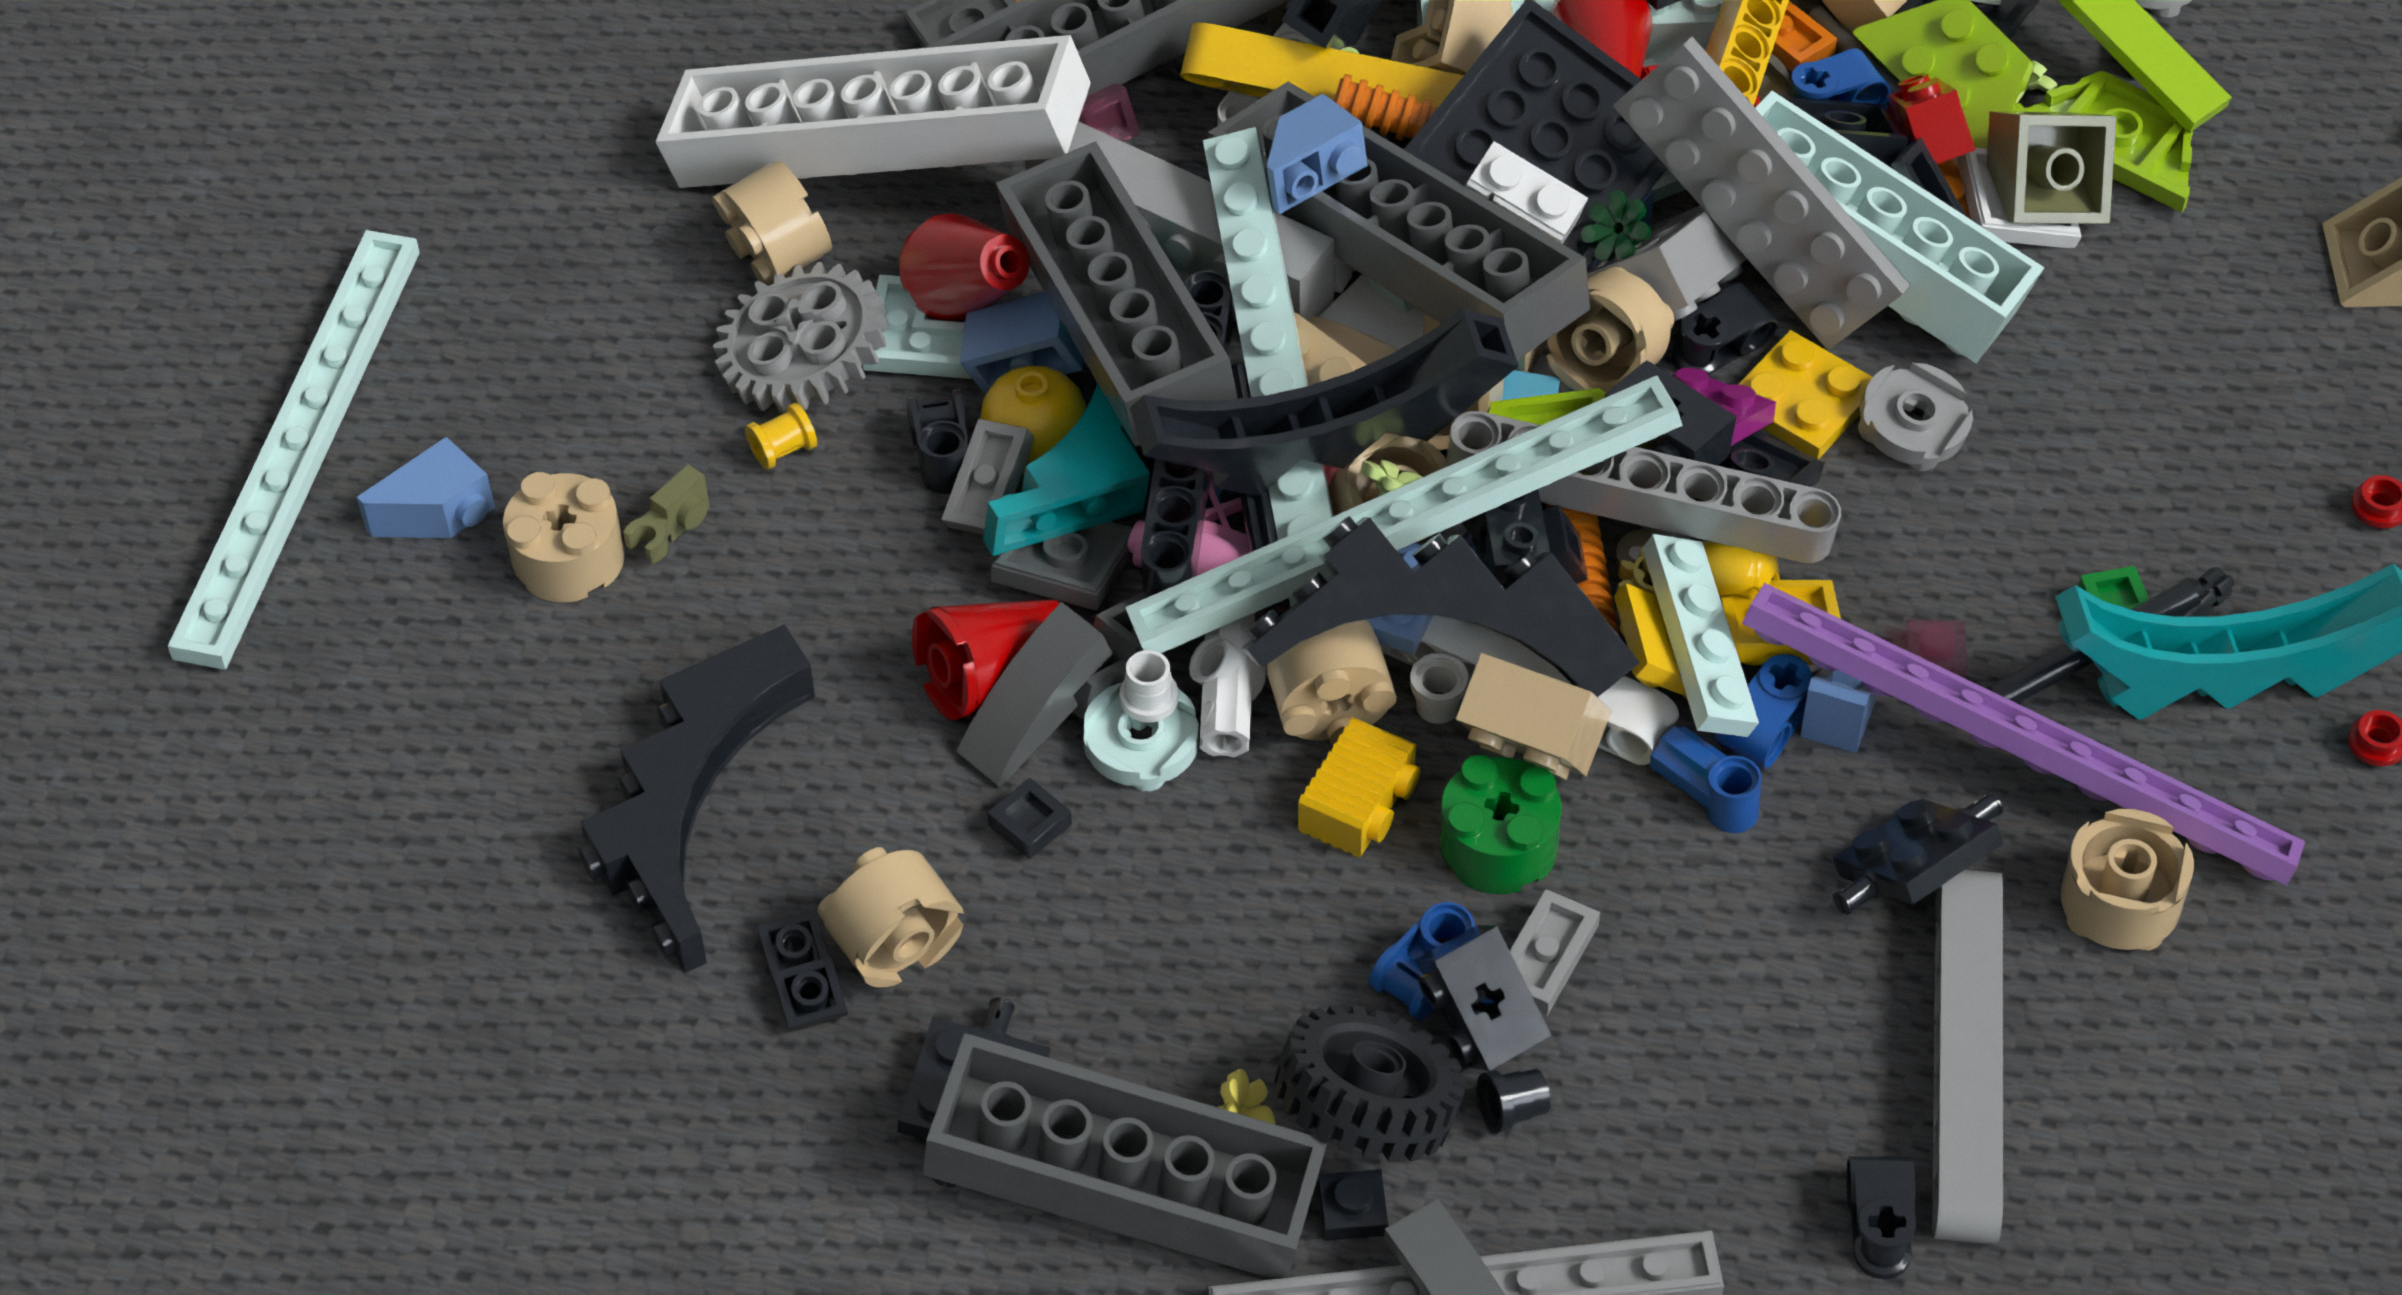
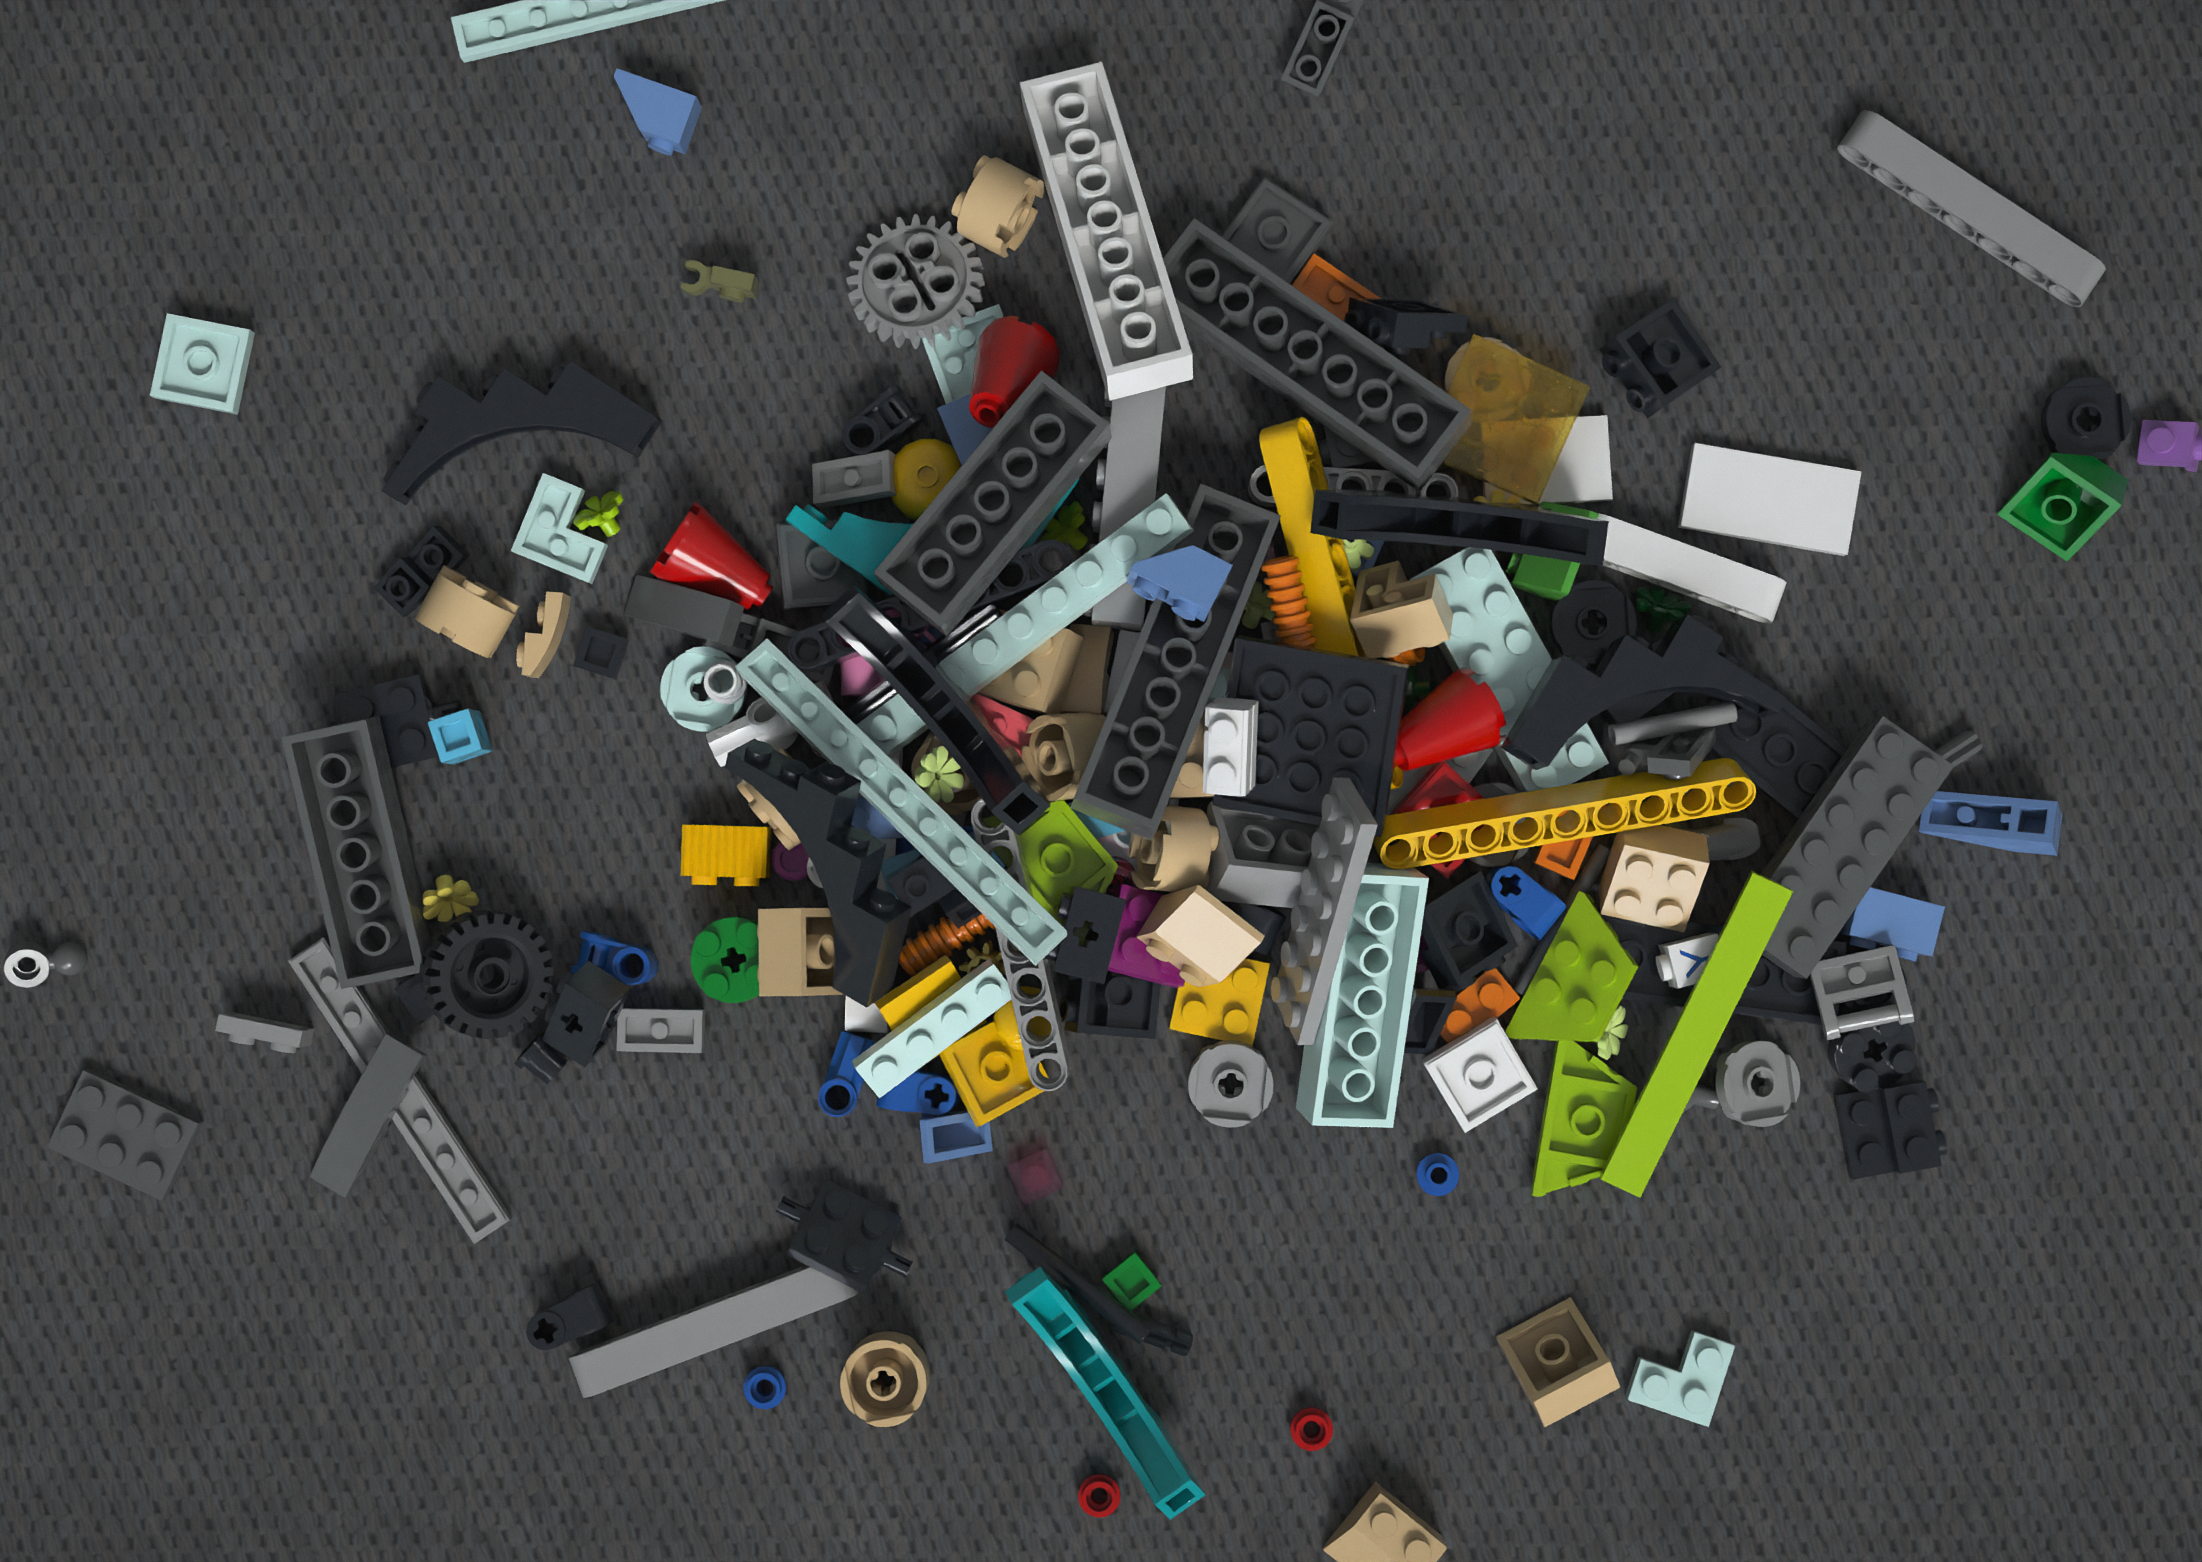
camera: 65 degrees right, 35 degrees up
(376, 1096) = (202, 364): none -> light aqua plate
(563, 535) = (642, 213): tan brick -> none
(781, 436) = (827, 316): yellow bush -> none
(850, 814) = (547, 533): none -> light aqua plate
(858, 745) = (601, 513): none -> lime plant
(981, 872) = (539, 649): none -> tan slope
(1042, 995) = (460, 736): none -> medium azure brick
(1110, 113) = (1228, 384): clear pink plate -> none
(1412, 725) = (790, 864): none -> magenta tile
(1616, 227) = (1256, 818): dark green plant -> none
(1724, 329) = (1198, 936): none -> tan slope
(1935, 114) = (1500, 989): red slope -> none
(2018, 730) = (962, 1268): medium lavender plate -> none
(2052, 165) = (1504, 1092): olive slope -> none
(2080, 1020) = (759, 1399): none -> blue plate
(2119, 279) = (1424, 1171): none -> blue plate

